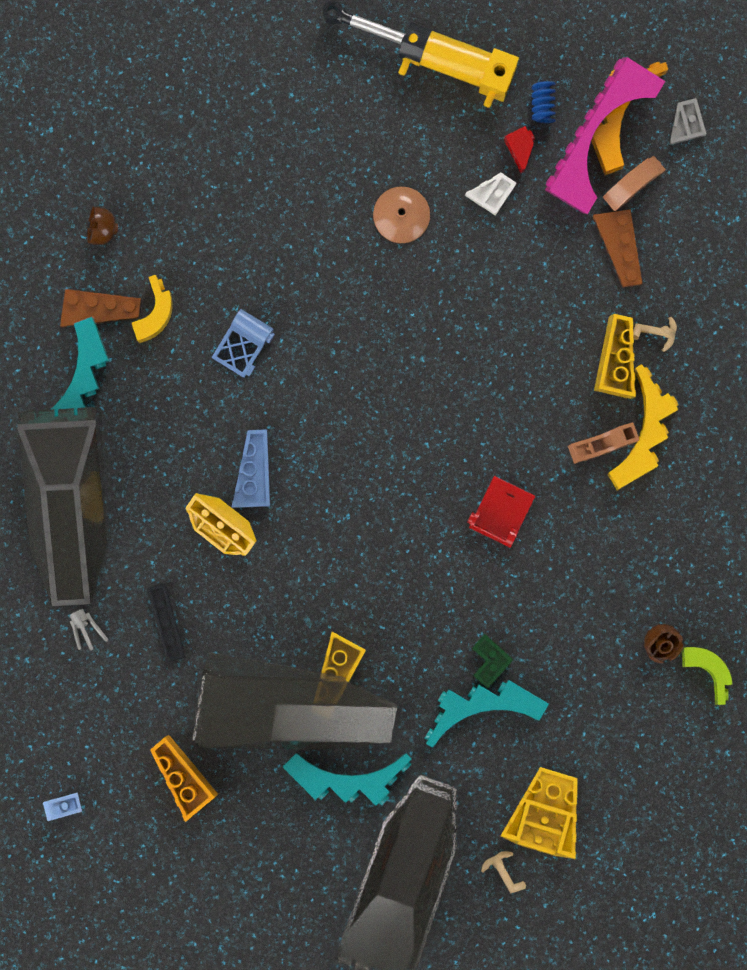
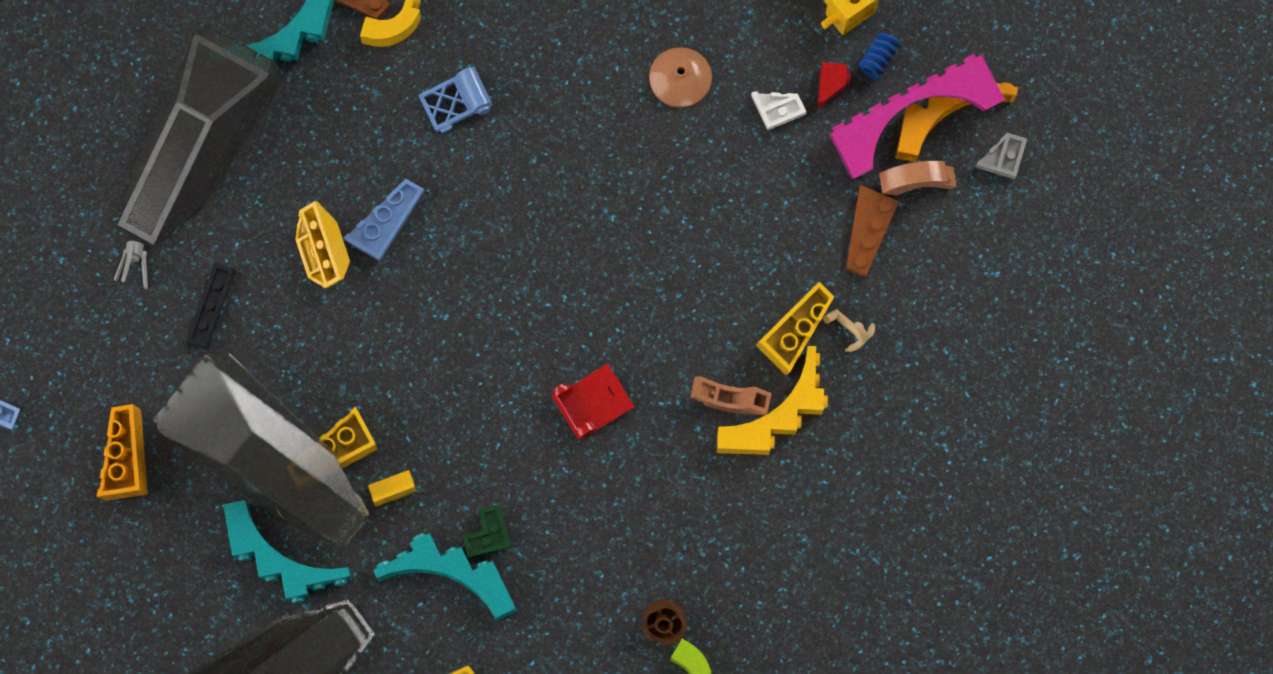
camera: 30 degrees right, 10 degrees down
(396, 672) = (392, 488): none -> yellow panel

